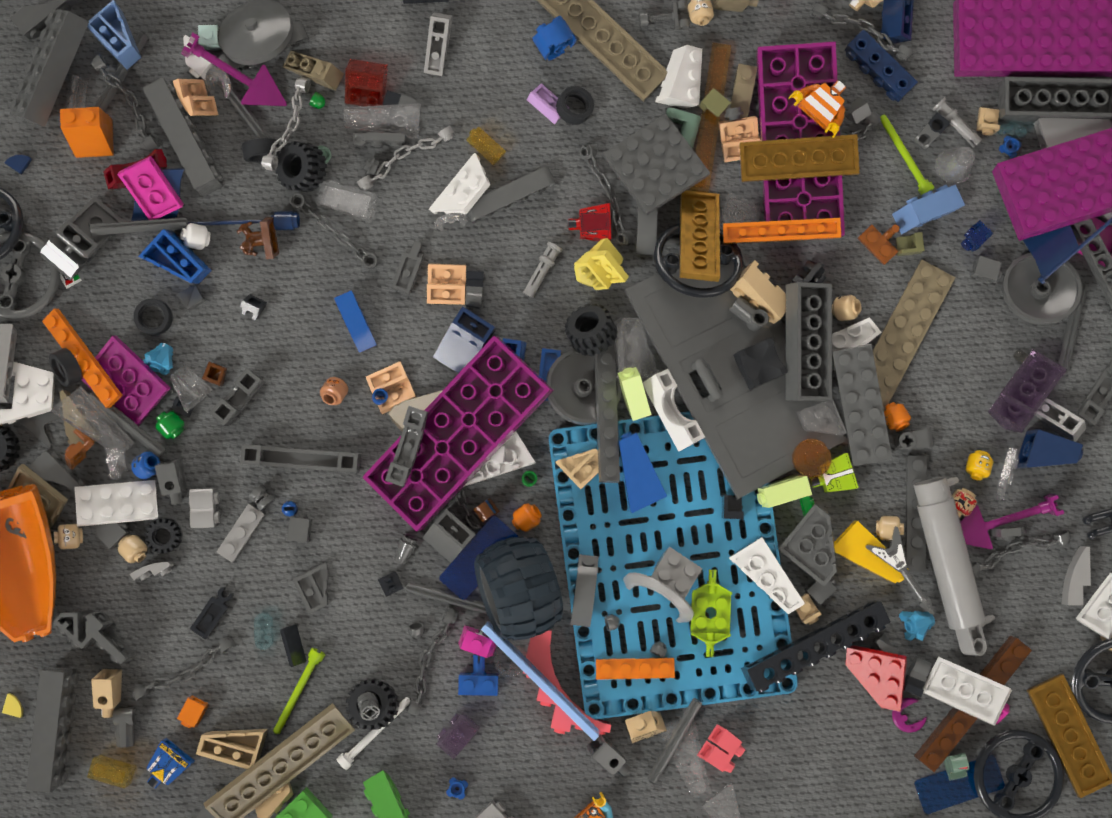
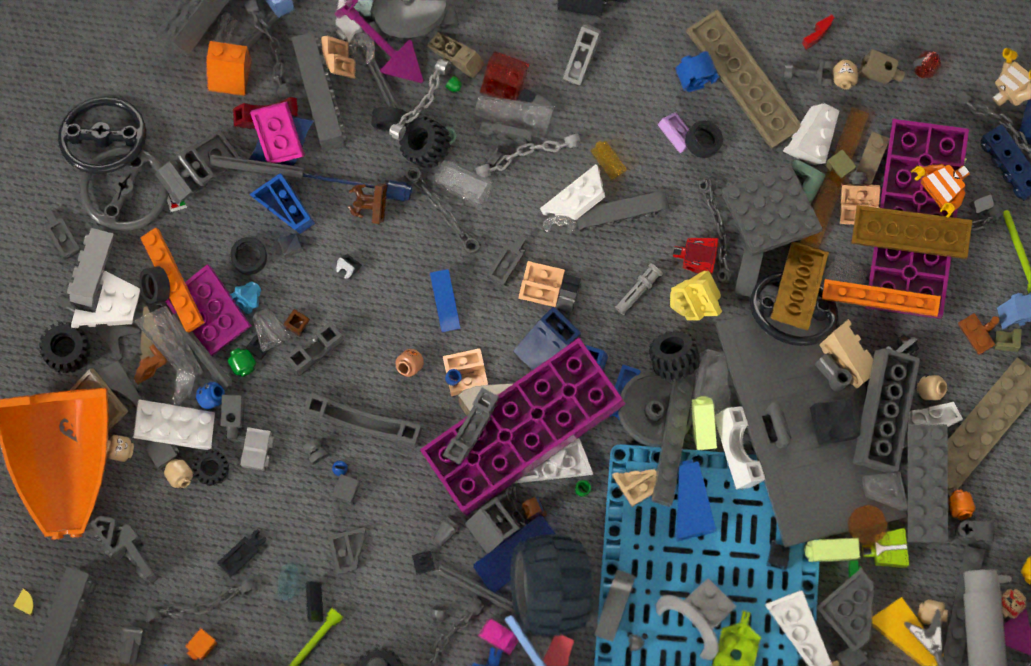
camera: 15 degrees right, 10 degrees down
(18, 162) = (152, 84): dark blue tile -> none
(107, 691) = (124, 598): tan torso -> none
(157, 568) = (200, 498): light grey slope -> none
(195, 236) = (308, 187): white head -> none
(240, 533) = (286, 481): light grey plate -> none
(526, 517) = (572, 525): orange head -> none

